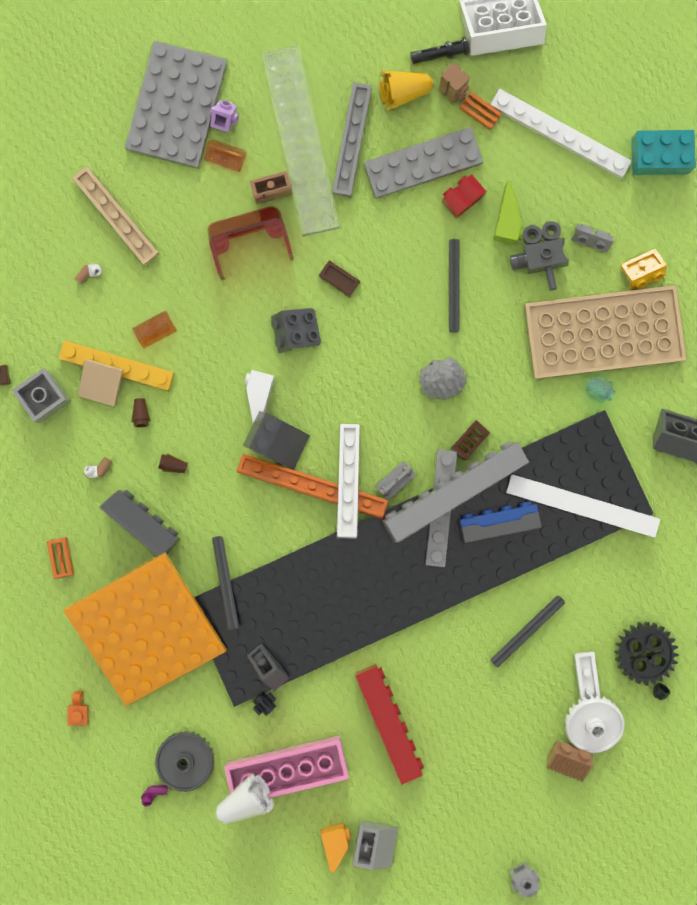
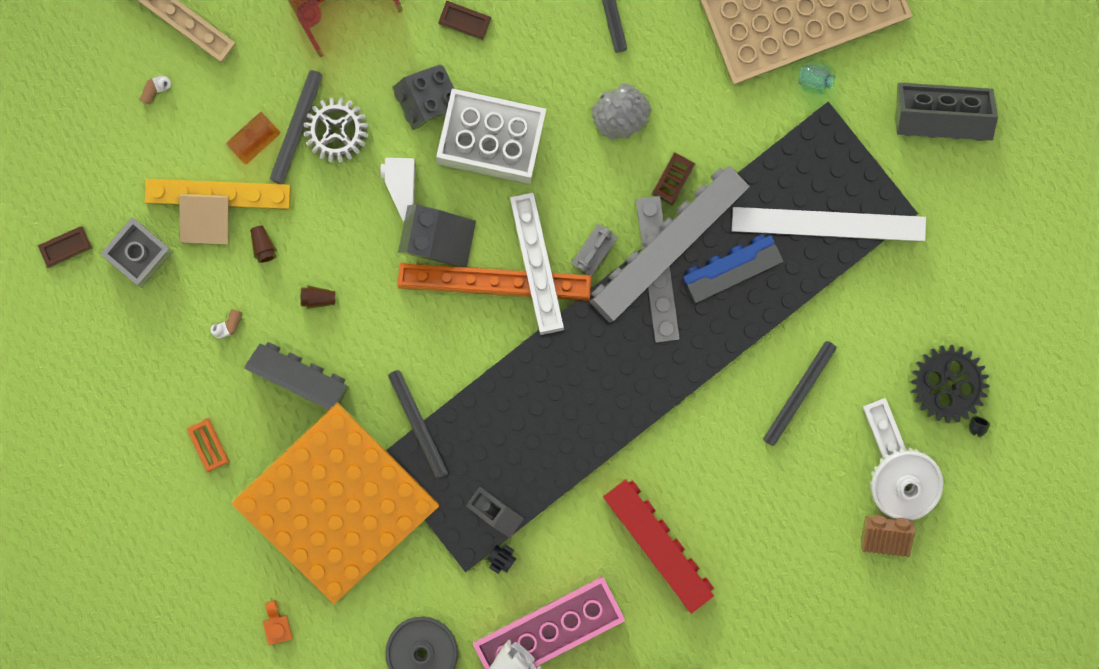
camera: 15 degrees left, 0 degrees up
(189, 329) = (296, 127): none -> dark grey axle
(211, 343) = (321, 115): none -> white gear
(337, 373) = (490, 136): none -> white slope

